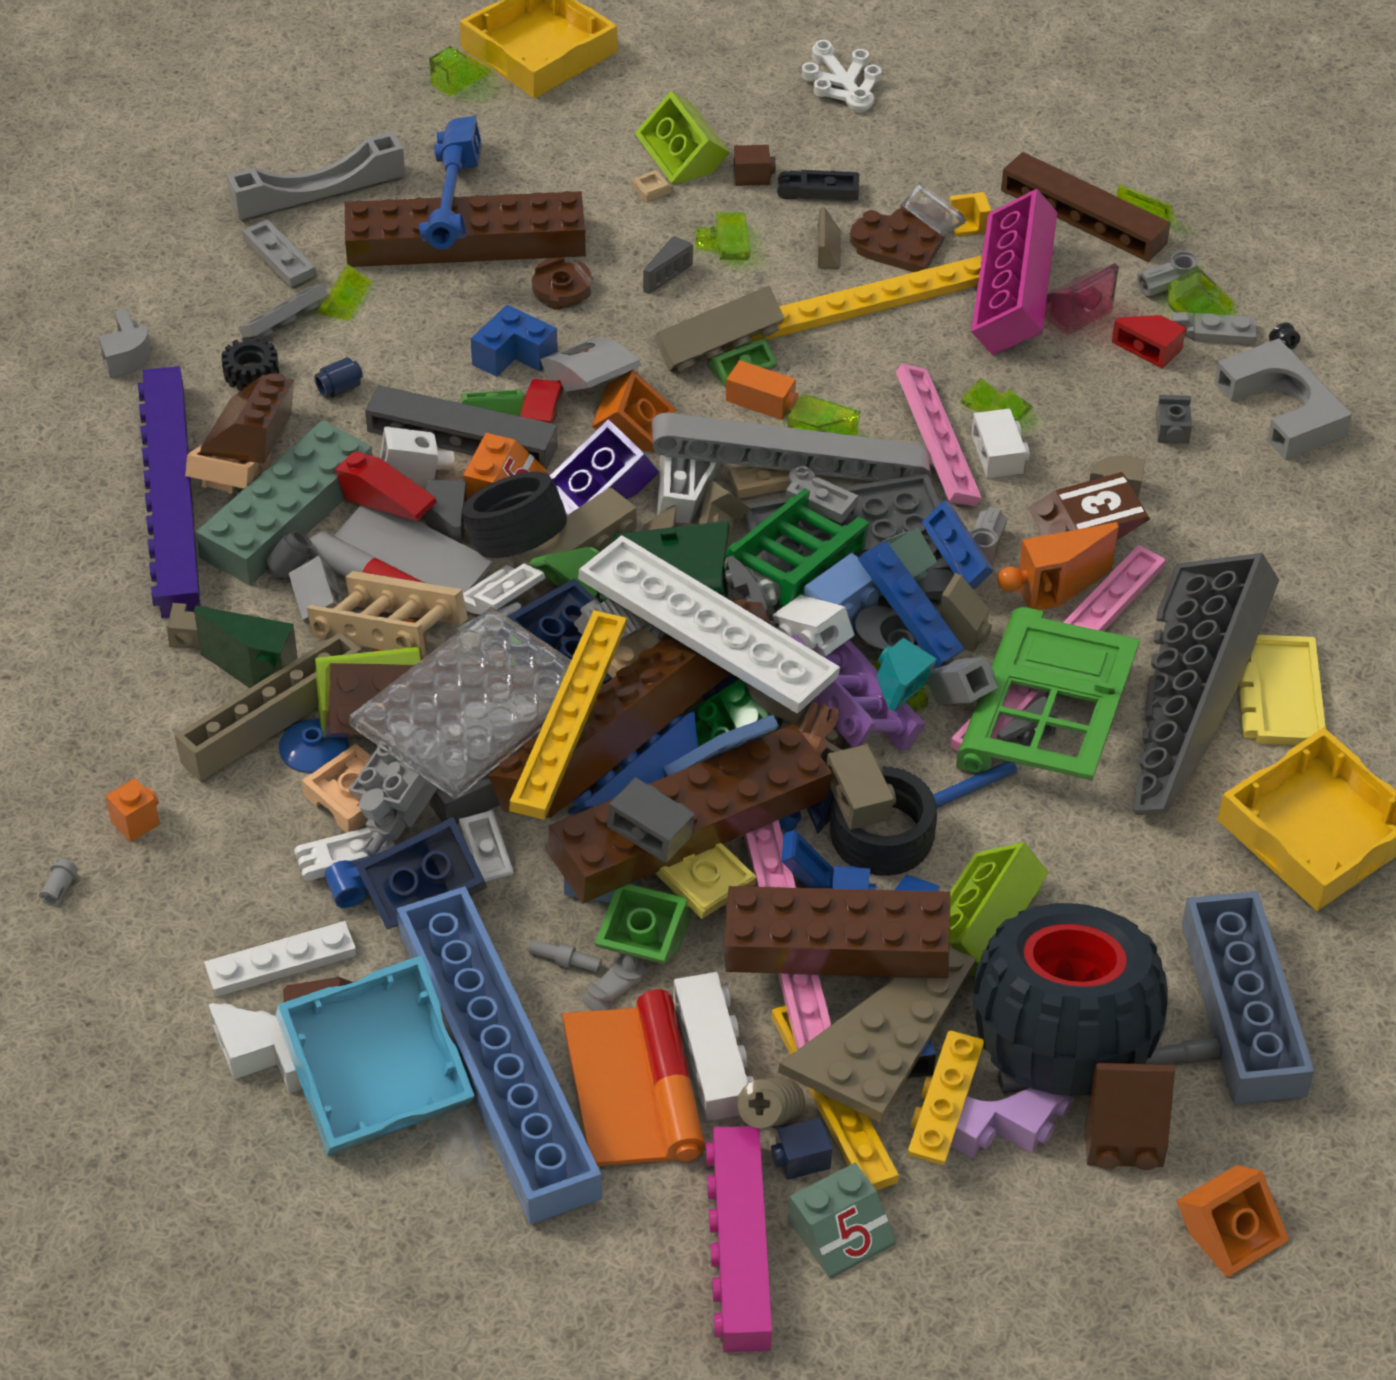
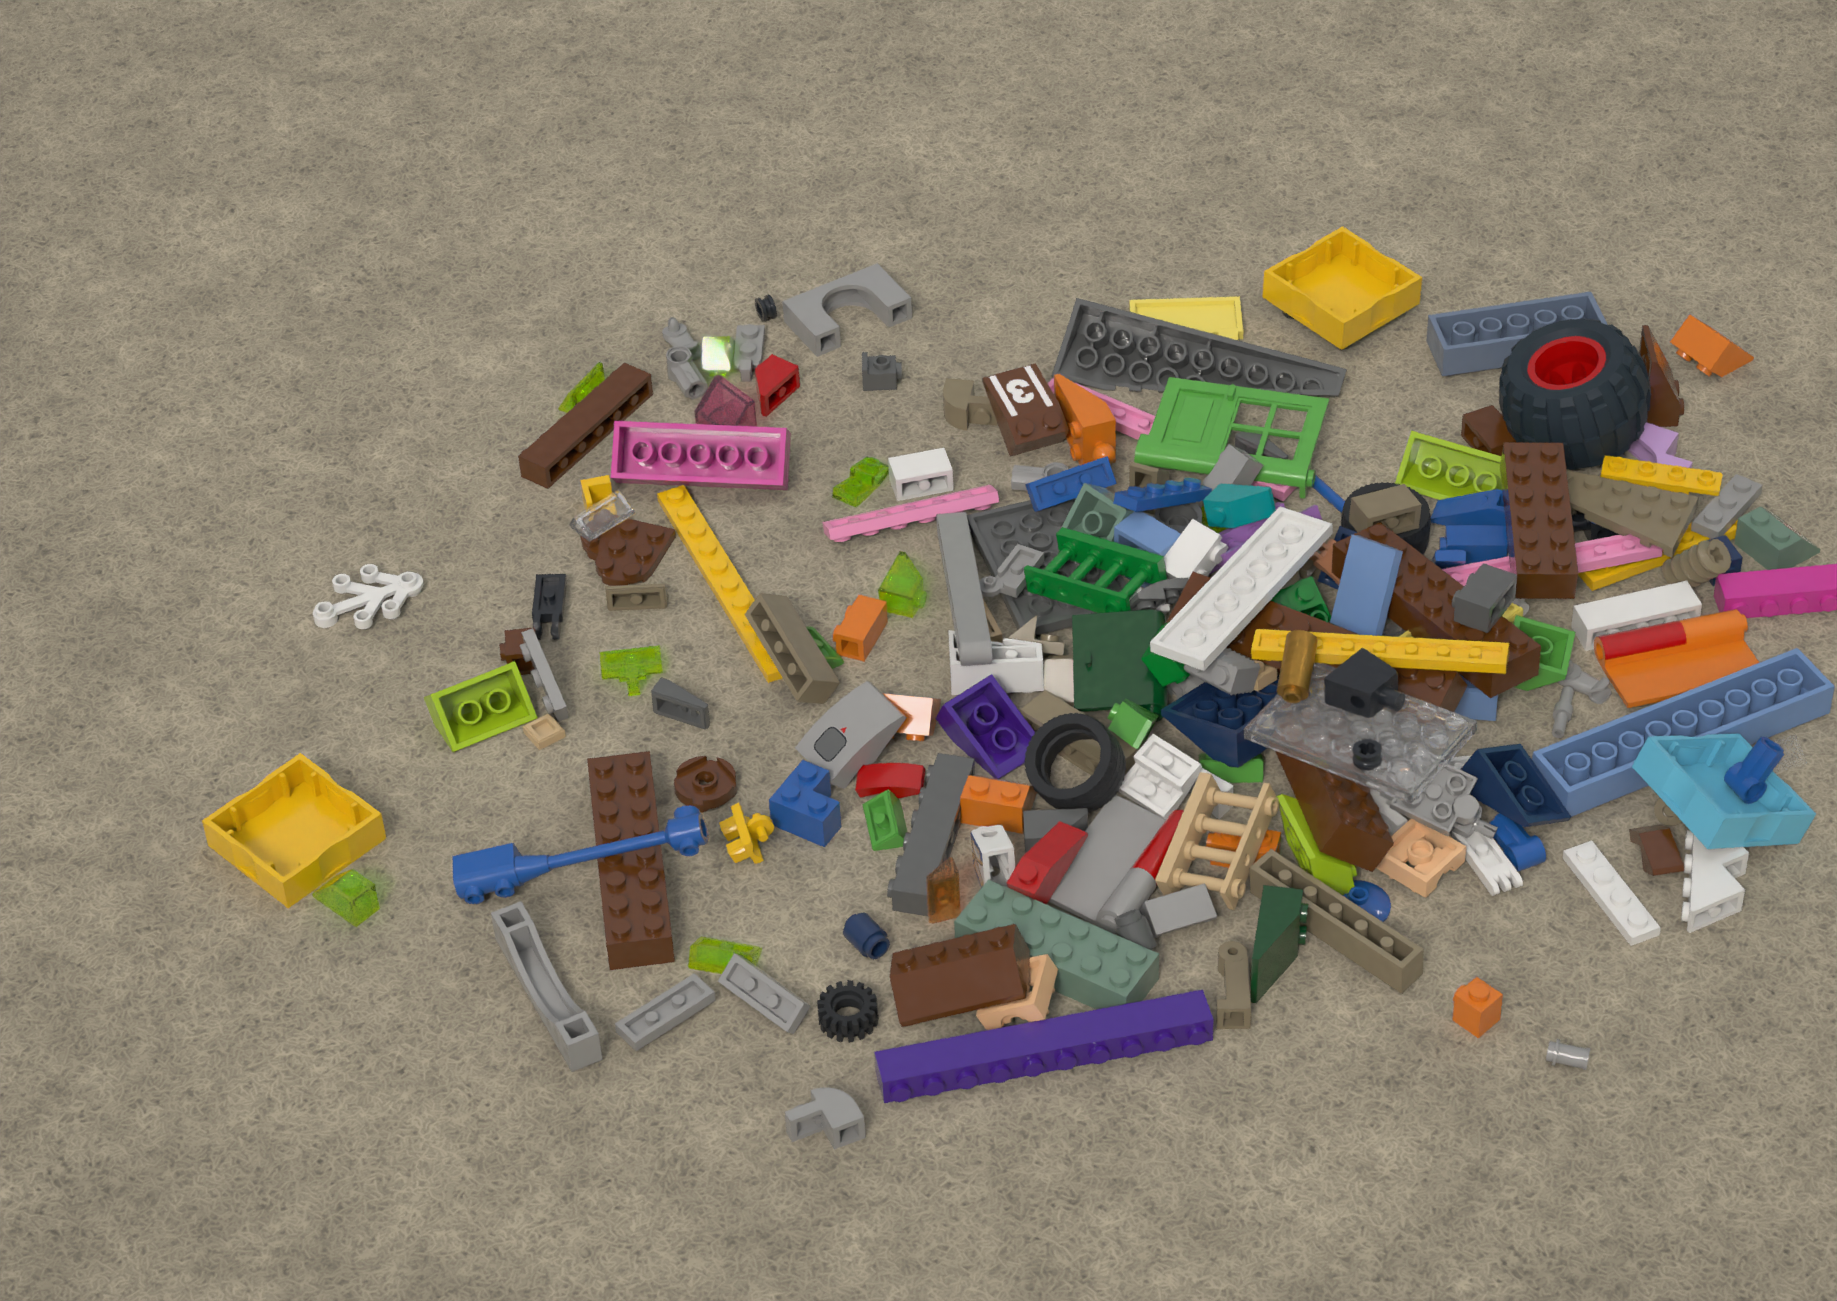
camera: 90 degrees left, 5 degrees down
(369, 418) = (943, 892): none -> clear orange slope
(399, 1092) = (1749, 776): none -> blue piece
(403, 685) = (1367, 754): none -> black bush
(483, 303) = (749, 831): none -> yellow hips
(512, 688) = (1363, 686): none -> black torso
(546, 632) = (1297, 666): none -> pearl gold brick
(702, 168) = (543, 675): none -> light grey plate
(893, 1166) = (1726, 507): none -> light grey plate
(1239, 277) = (677, 335): none -> light grey piece

